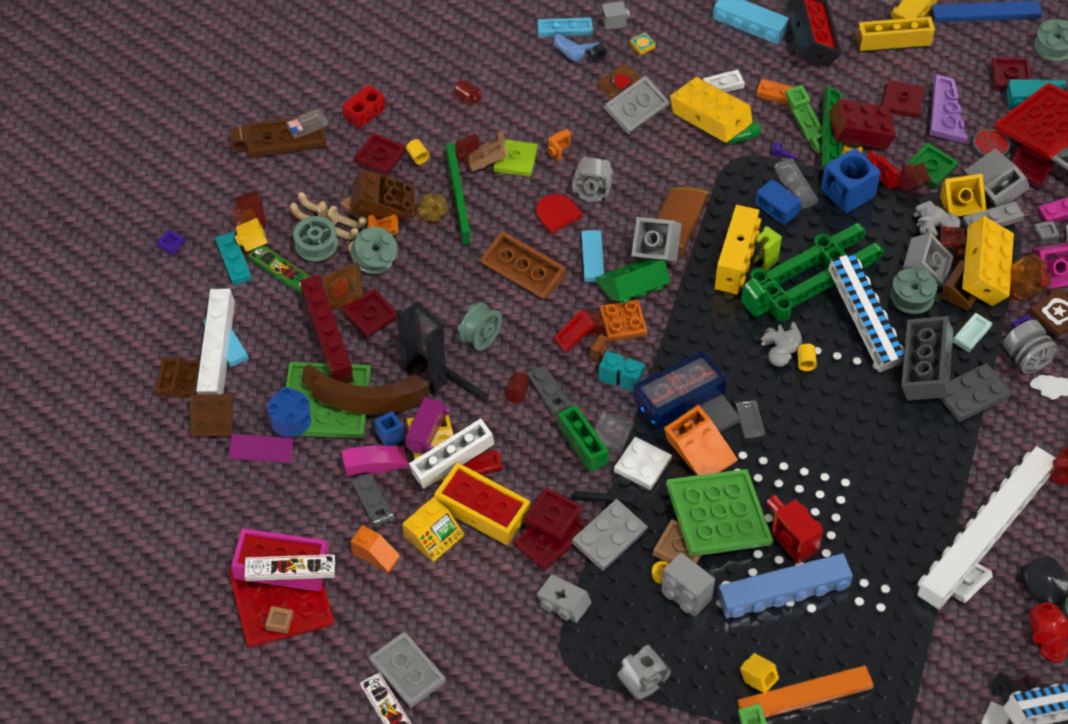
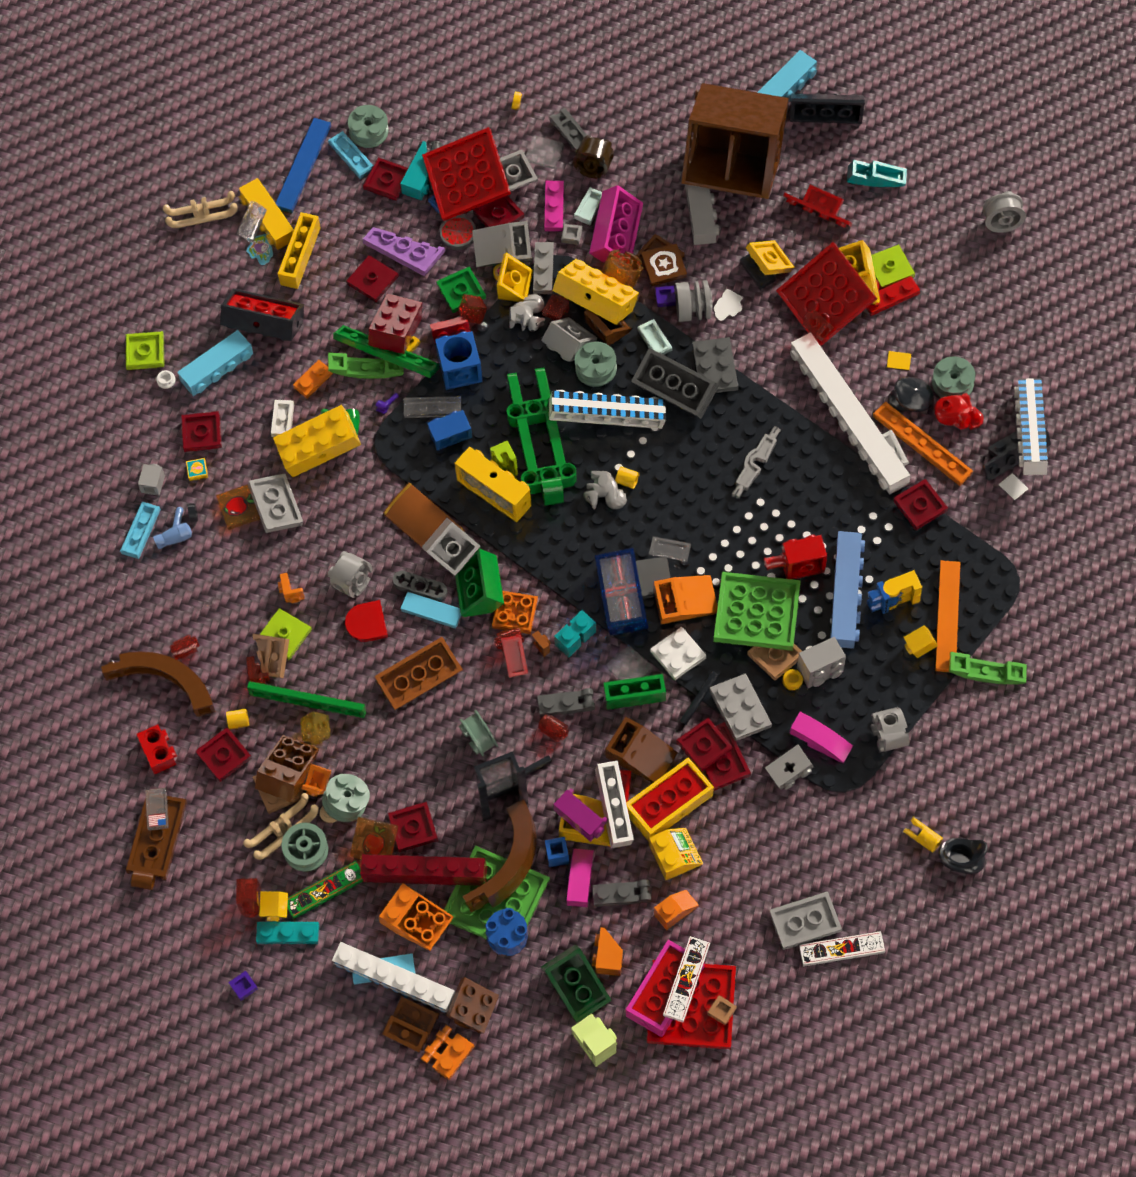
camera: 65 degrees left, 10 degrees up
(161, 420) = (452, 1056): none -> orange plate
(211, 524) = (595, 1039): none -> yellowish green brick
(261, 448) = (522, 974): magenta sticker -> none
(265, 491) = (576, 983): none -> dark green slope
(280, 340) = (415, 917): none -> orange slope
(305, 508) = (609, 954): none -> orange slope
(436, 106) = (164, 667): none -> reddish brown arch
(524, 463) = (640, 751): none -> reddish brown slope
(608, 615) = (820, 737): none -> dark pink slope
(616, 232) = (435, 585): none -> dark grey beam
(679, 32) = (201, 431): none -> dark red plate
(801, 628) = (895, 592): none -> hips
(874, 460) = (759, 454): none -> light grey piece
(882, 12) = (260, 249): none -> sticker
(920, 625) = (920, 504): none -> dark red plate
(996, 611) = (923, 443): none -> orange tile
(1020, 40) = (351, 155): none -> medium azure tile

